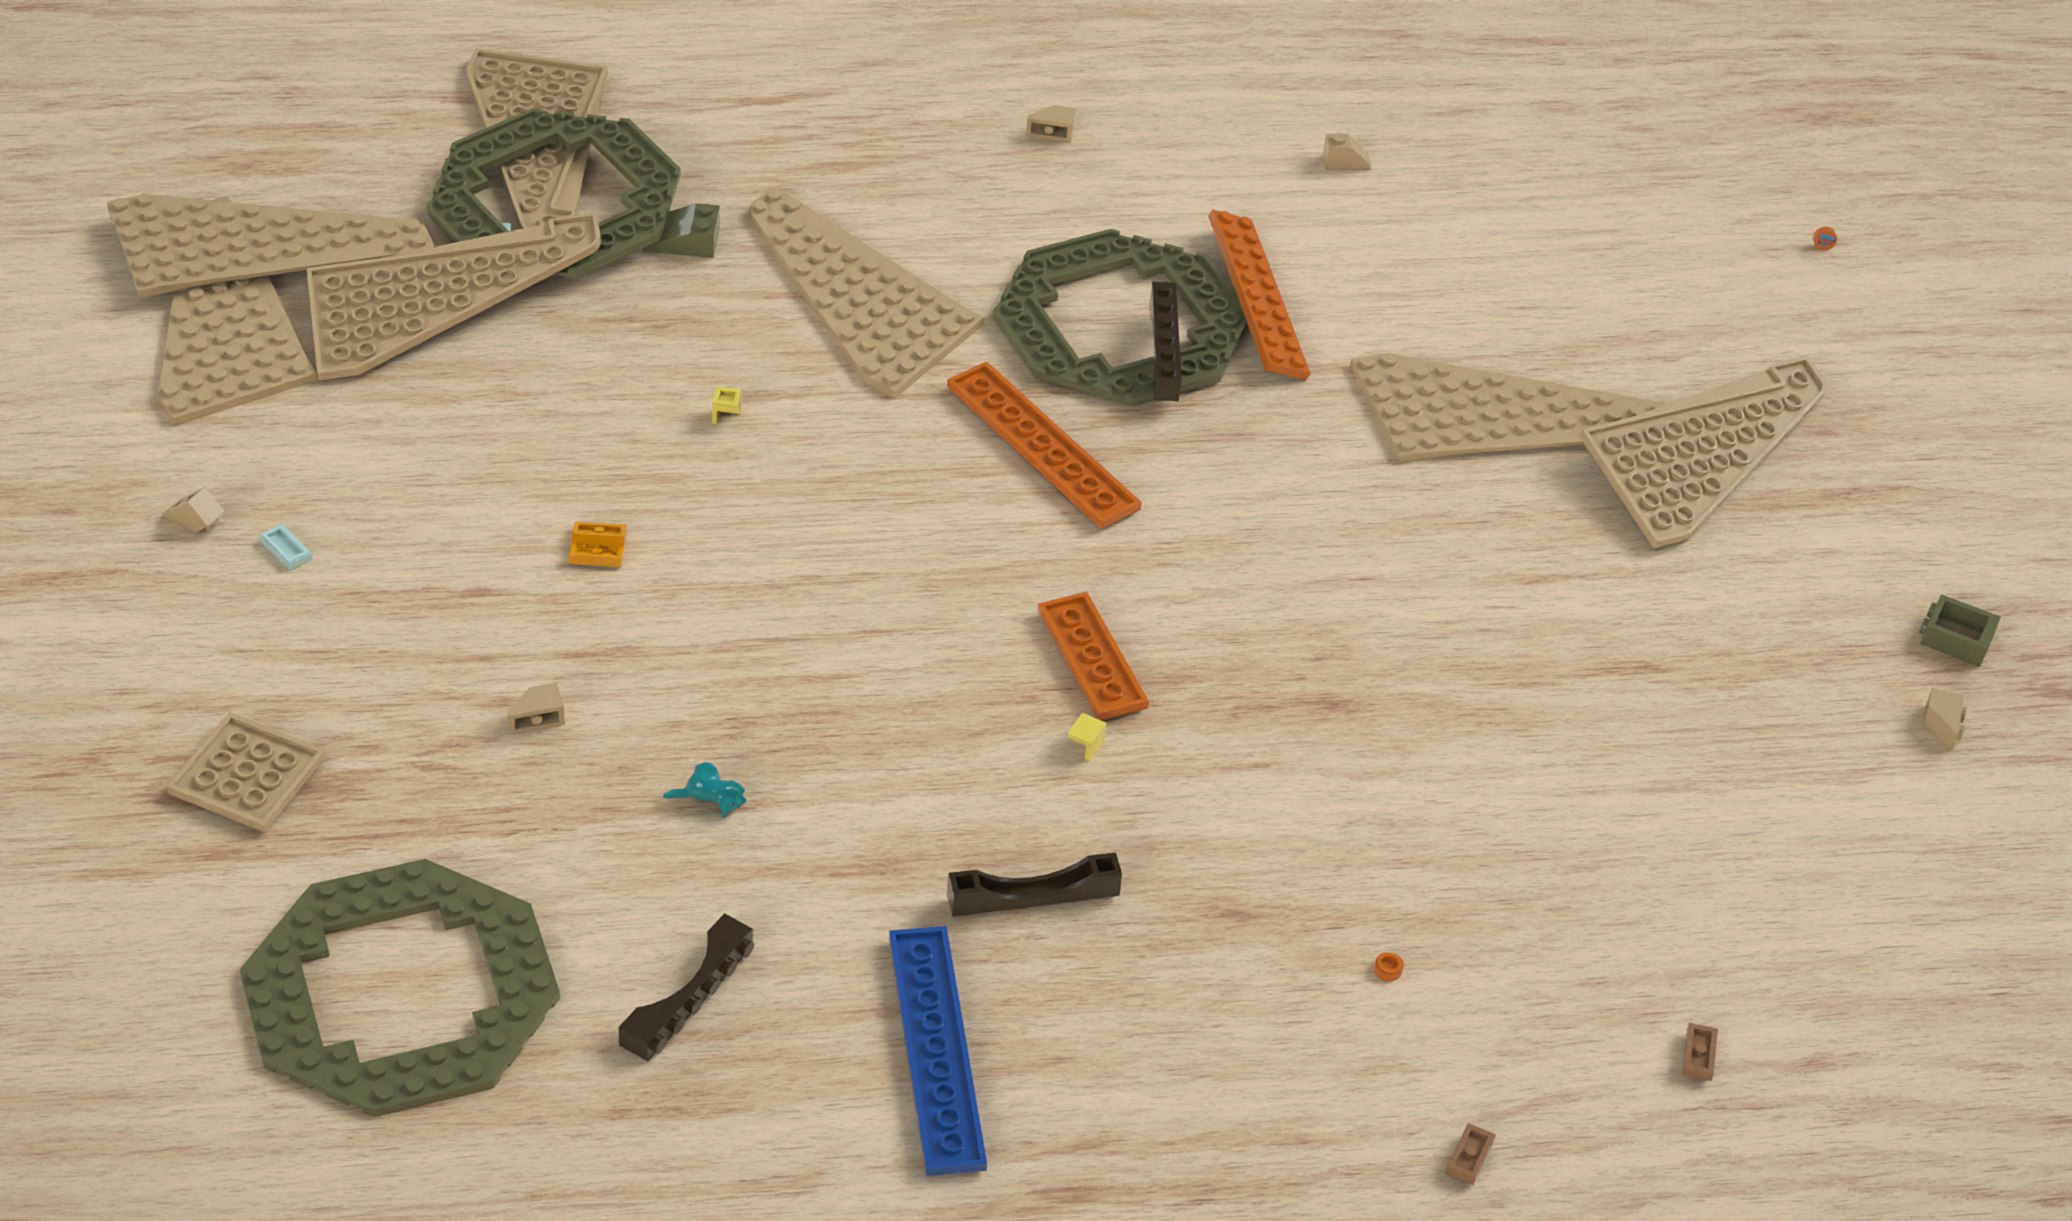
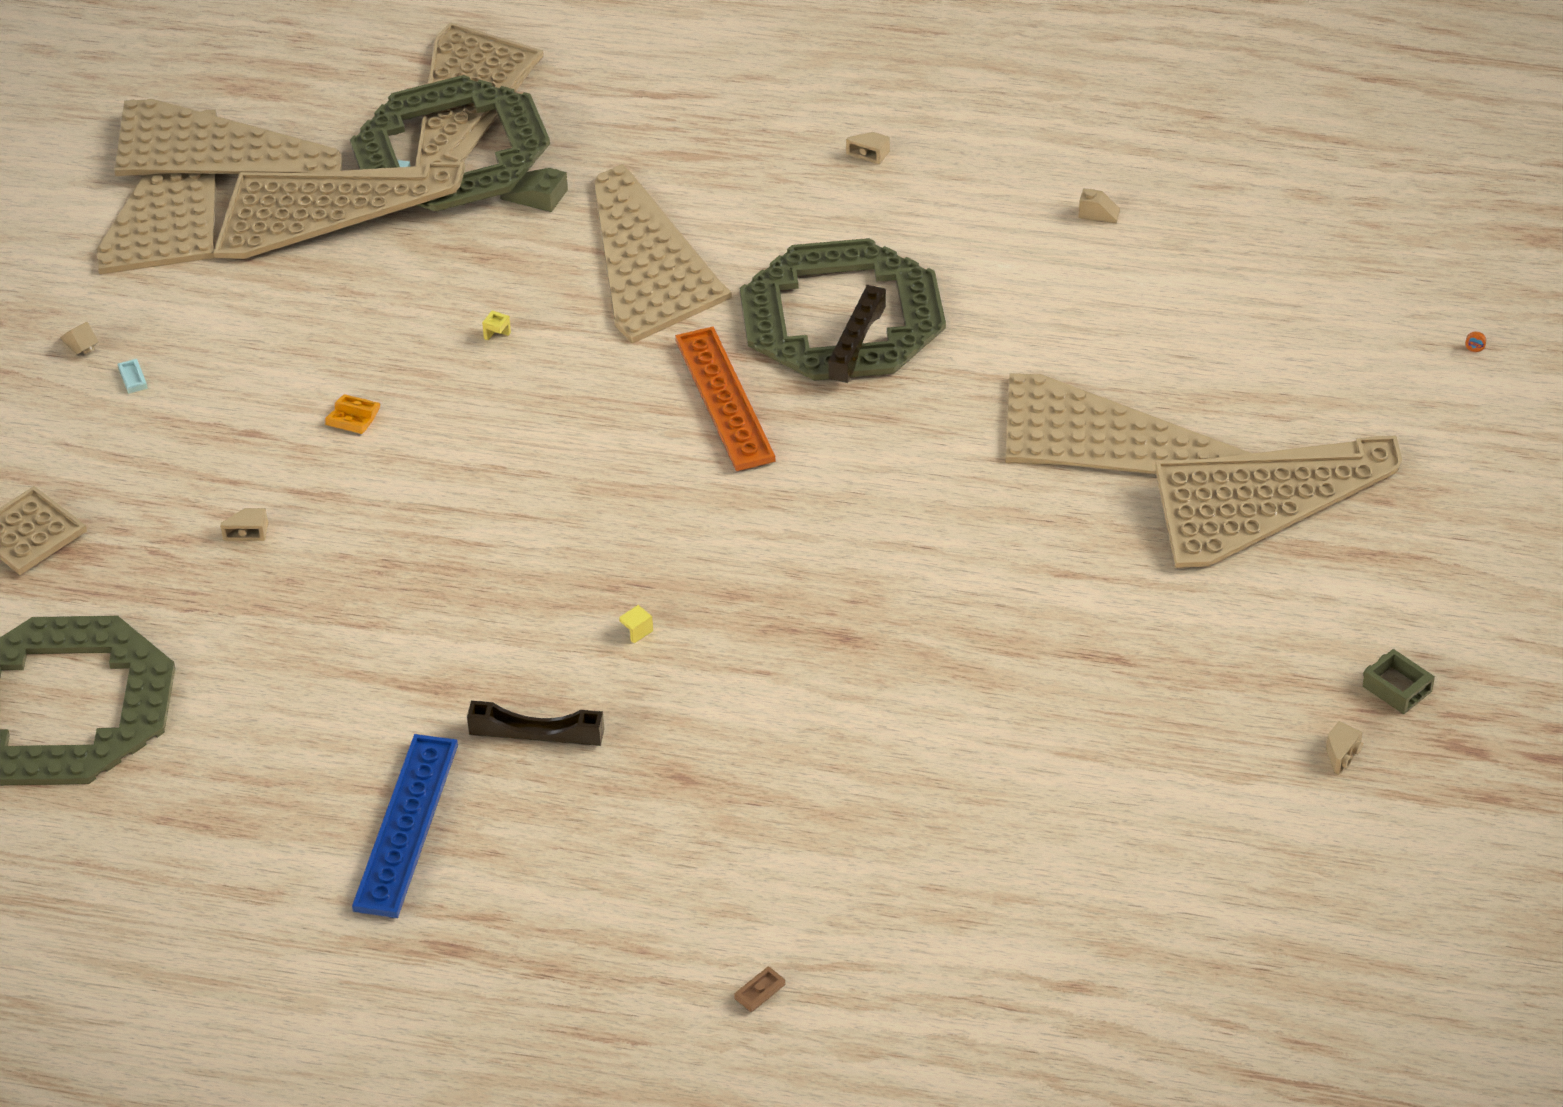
camera: 25 degrees right, 0 degrees up
(652, 1025) = (216, 763): dark brown arch -> none
(708, 787) = (338, 604): teal animal -> none
(1093, 656) = (675, 565): orange plate -> none
(1259, 295) = (960, 310): orange plate -> none
(1388, 966) = (777, 841): orange tile -> none
(1700, 1051) = (983, 956): medium nougat plate -> none

